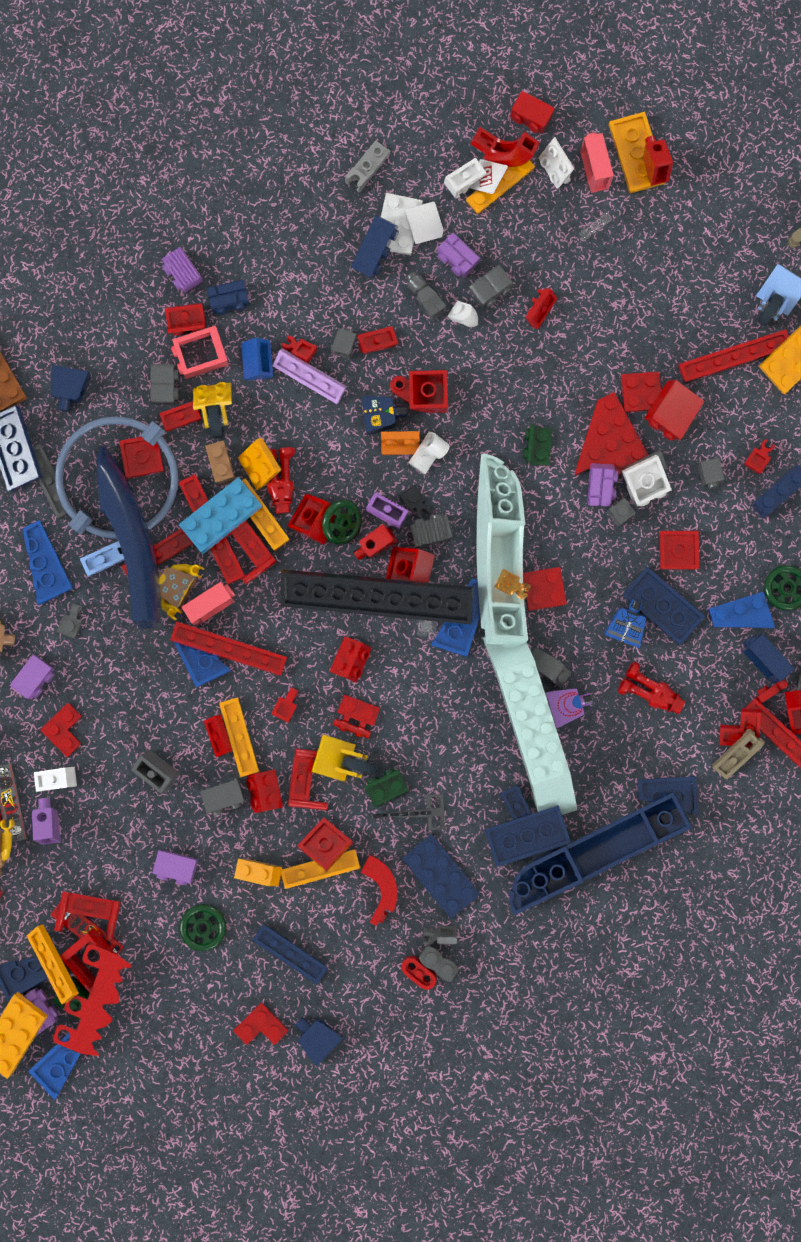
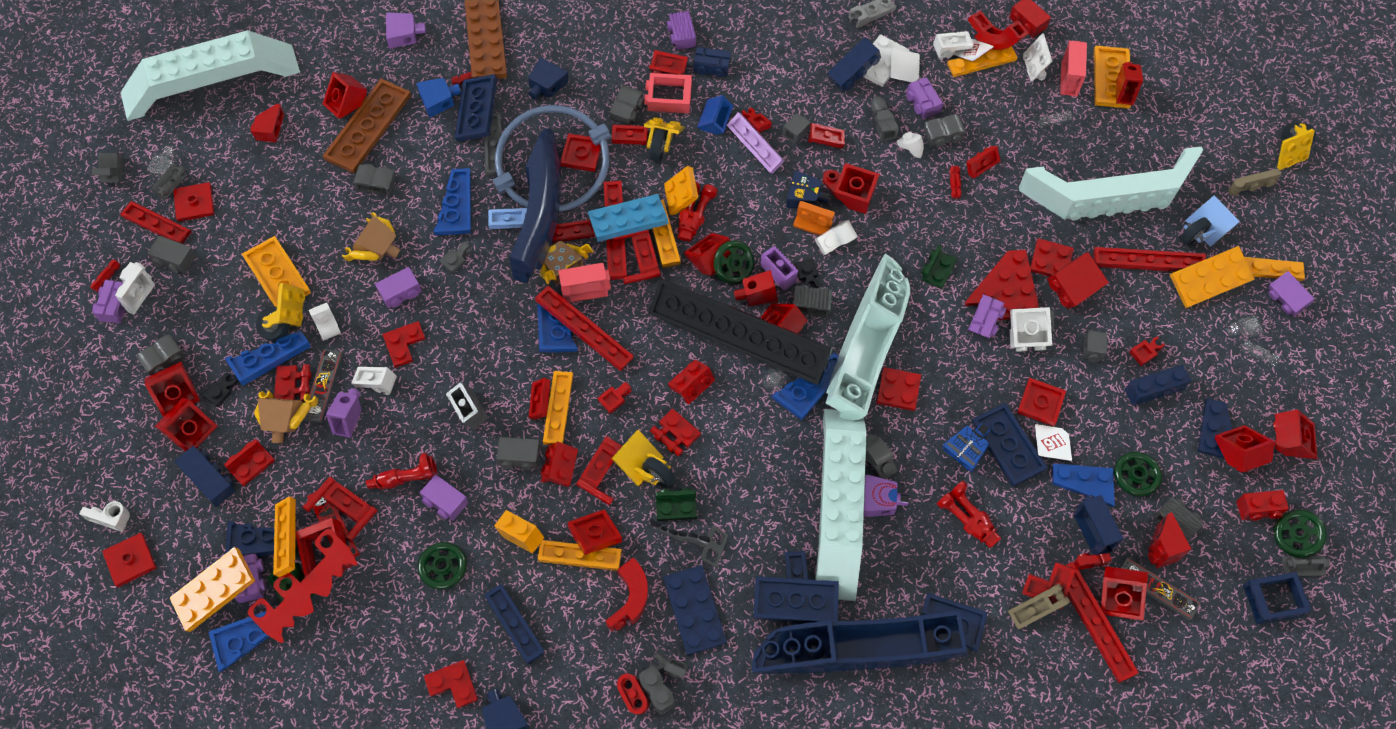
camera: 20 degrees right, 20 degrees down
(118, 869) = (396, 477): none -> red piece
(220, 463) = (647, 178): medium nougat brick -> none
(510, 583) = (869, 362): clear orange plate -> none
(521, 341) = (955, 182): none -> red axle
(621, 512) = (996, 348): dark grey brick -> none
(682, 298) = (1108, 194): none -> light aqua slope
(702, 587) = (1053, 442): none -> white sticker

